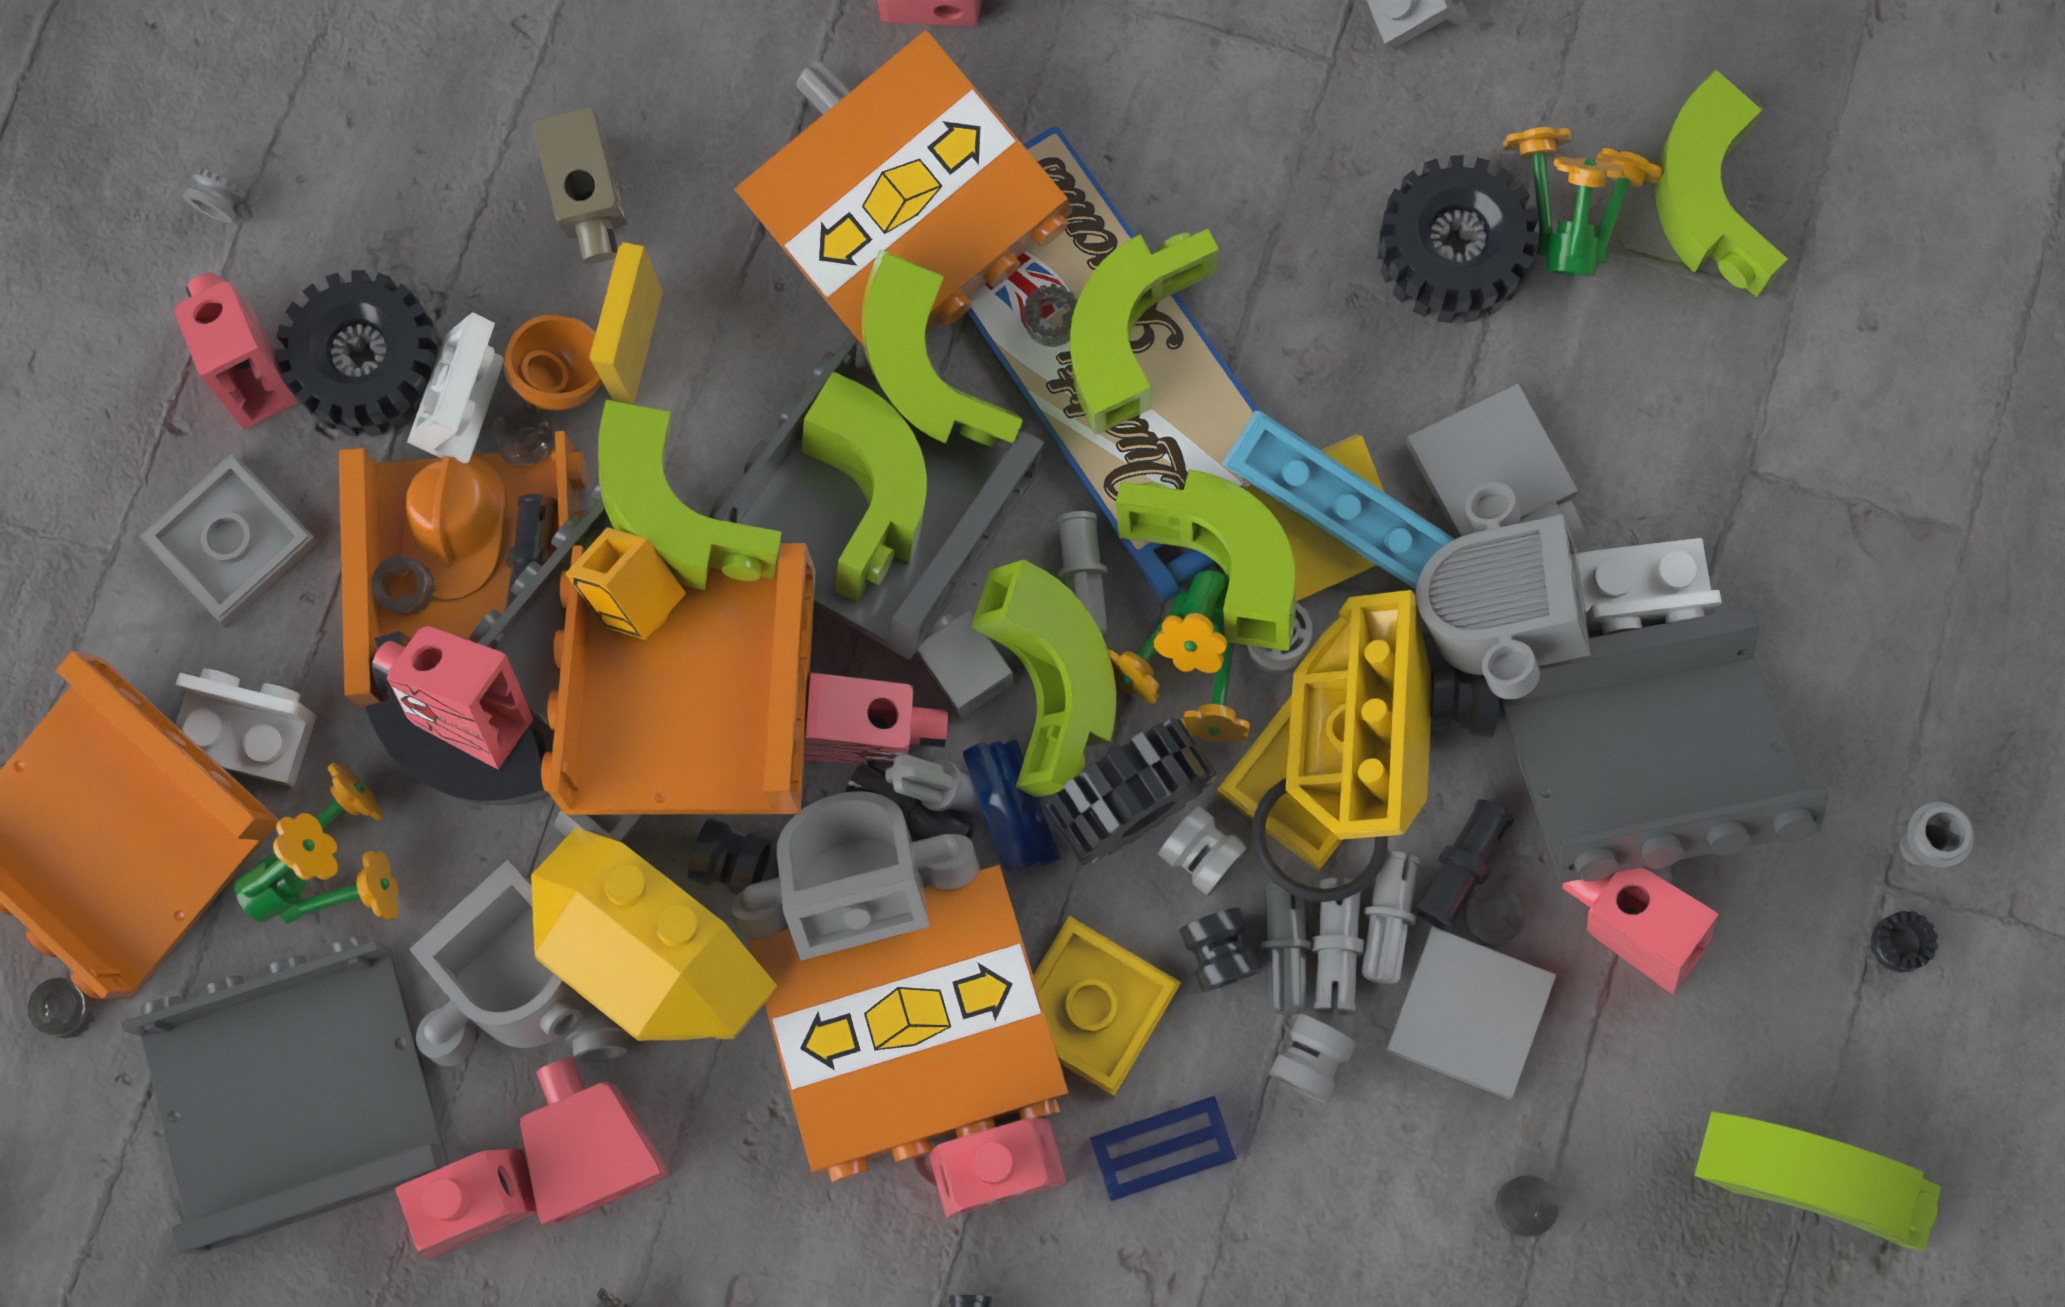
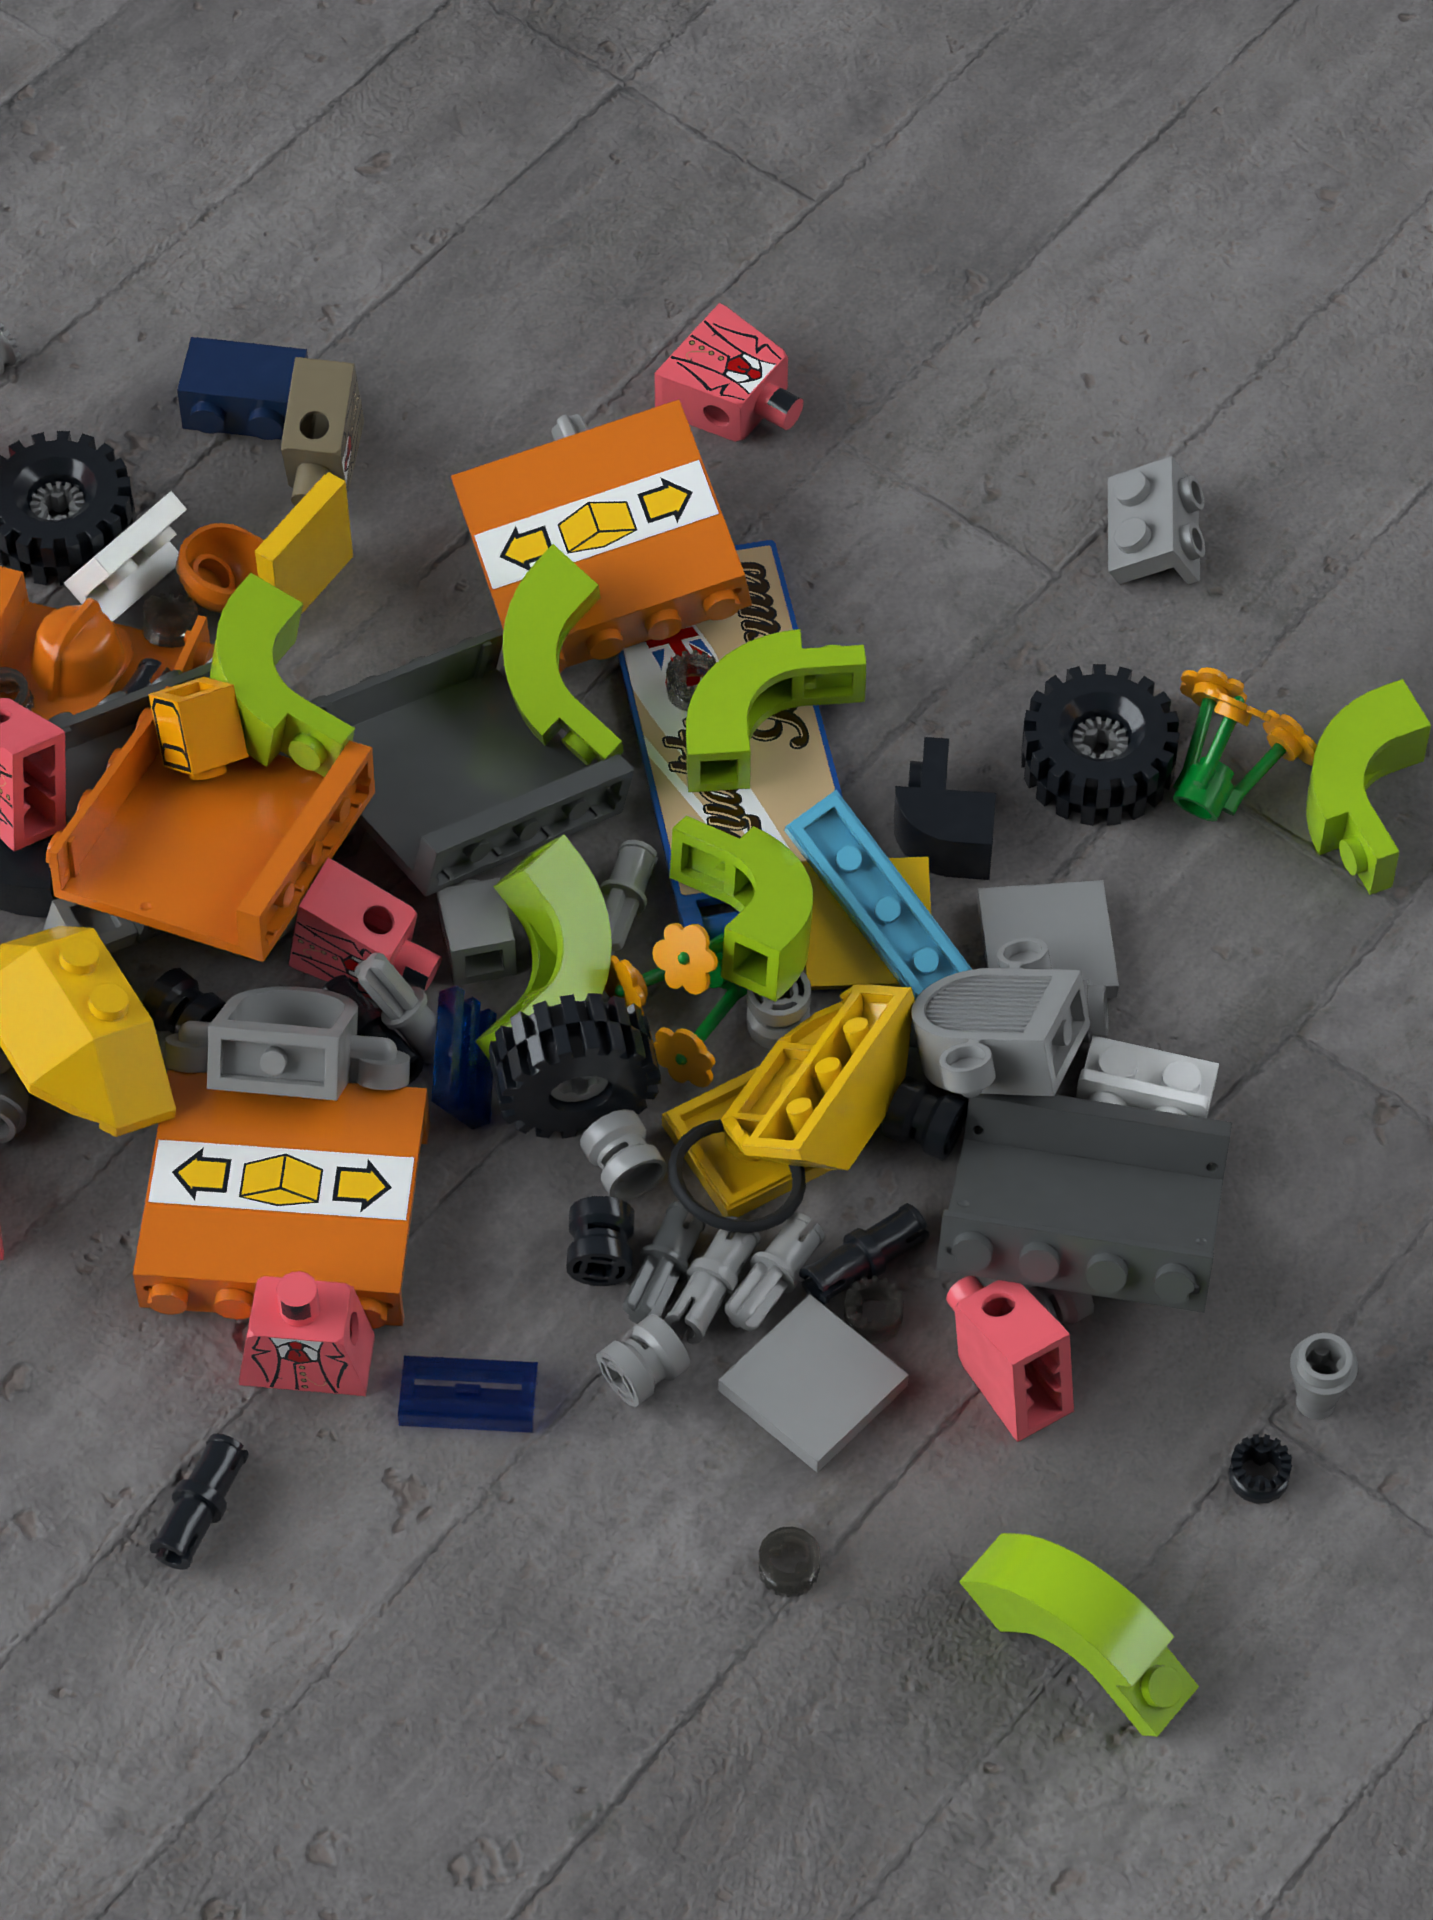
camera: 15 degrees right, 20 degrees down
(478, 152) = (236, 387): none -> dark blue brick
(879, 451) = (476, 718): lime arch -> none
(1100, 1003) = (467, 1255): yellow tile -> none
(1350, 386) = (942, 823): none -> black brick

